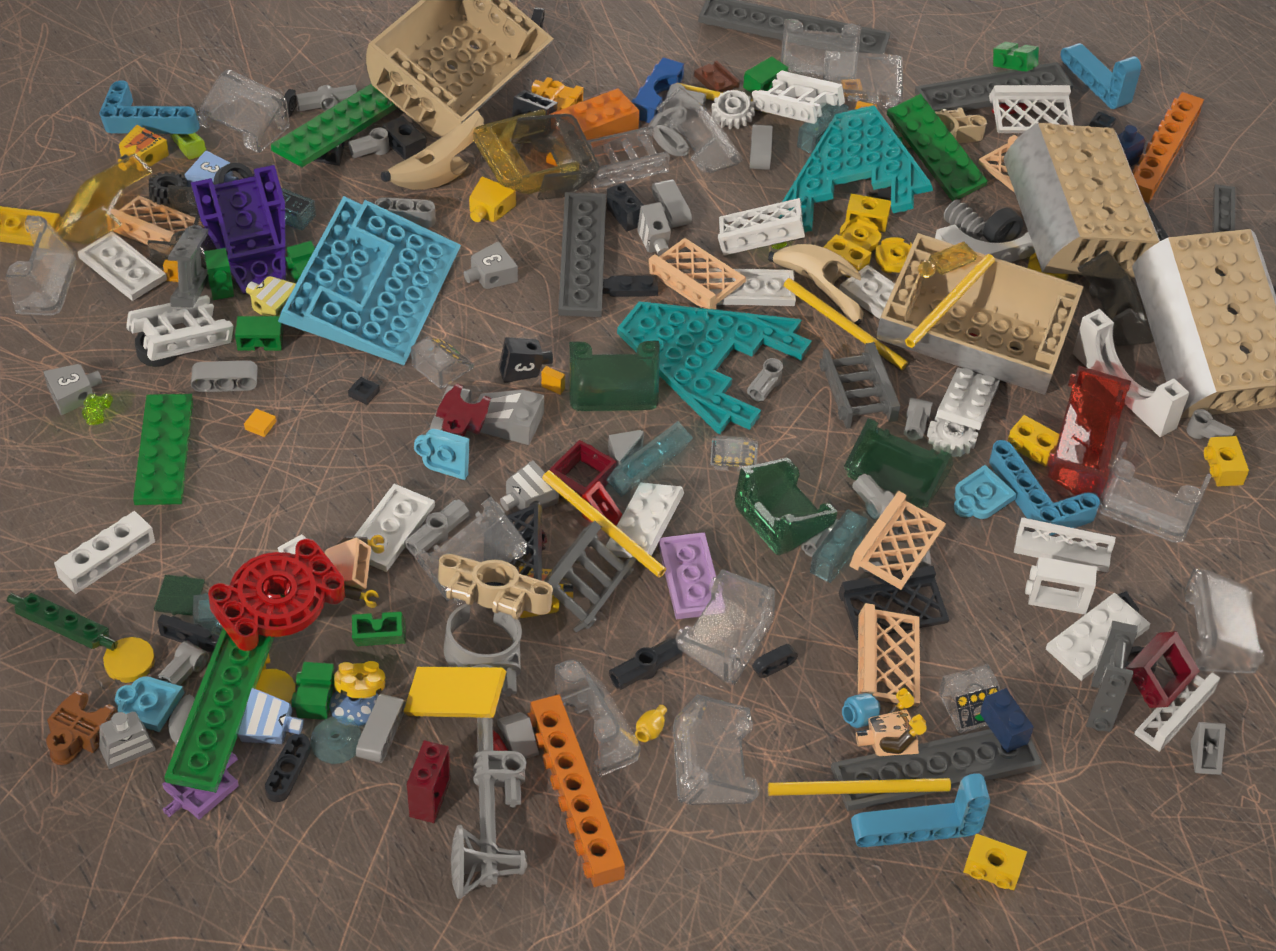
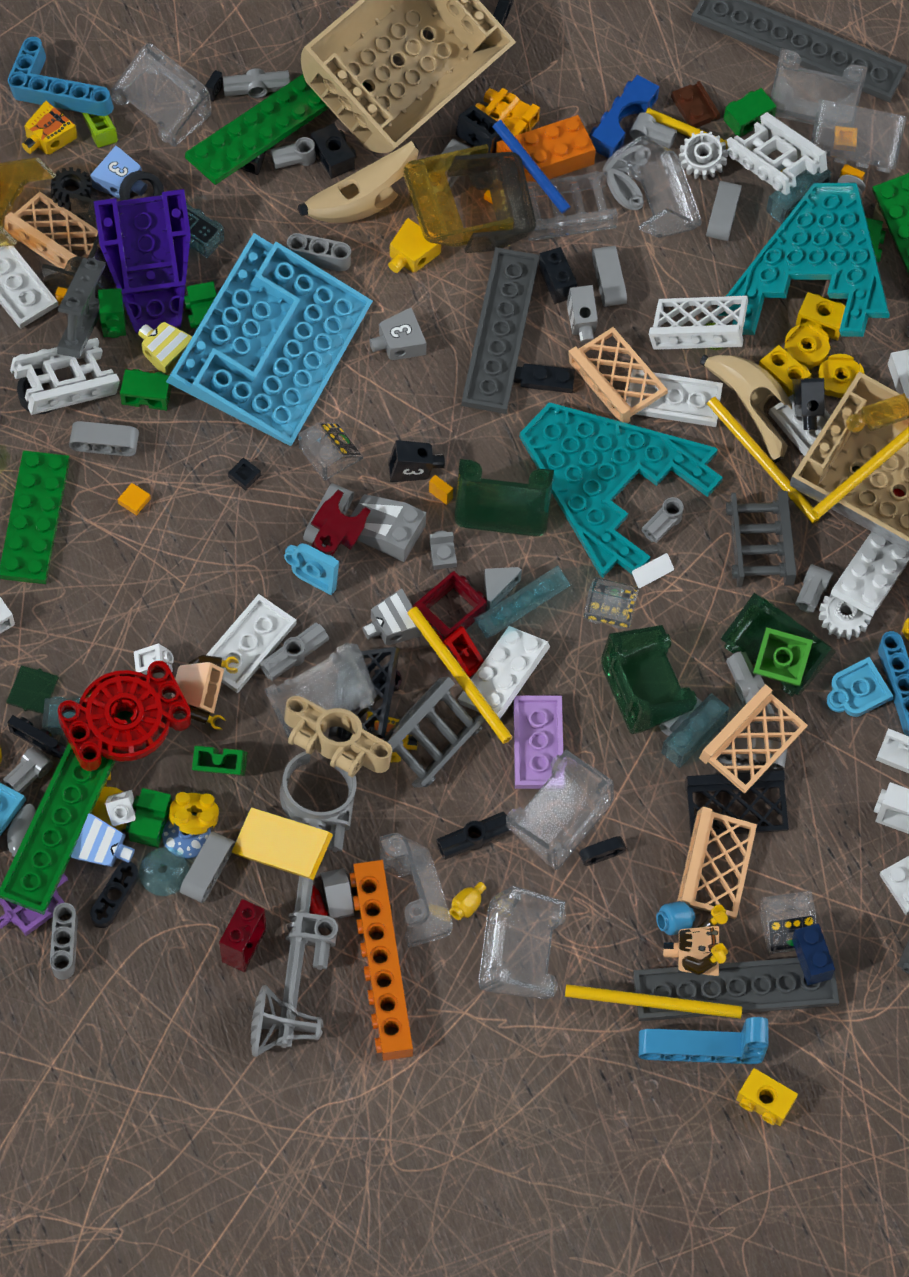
camera: 10 degrees right, 15 degrees up
(240, 827) = (60, 930): none -> light grey beam
(284, 683) = (120, 808): none -> white bracket
(564, 428) = (442, 550): none -> light grey bracket
(586, 125) = (531, 166): none -> blue piece
(765, 422) = (652, 570): none -> white sticker
(875, 267) = (809, 390): none -> black torso
(907, 470) = (783, 656): none -> bright green slope

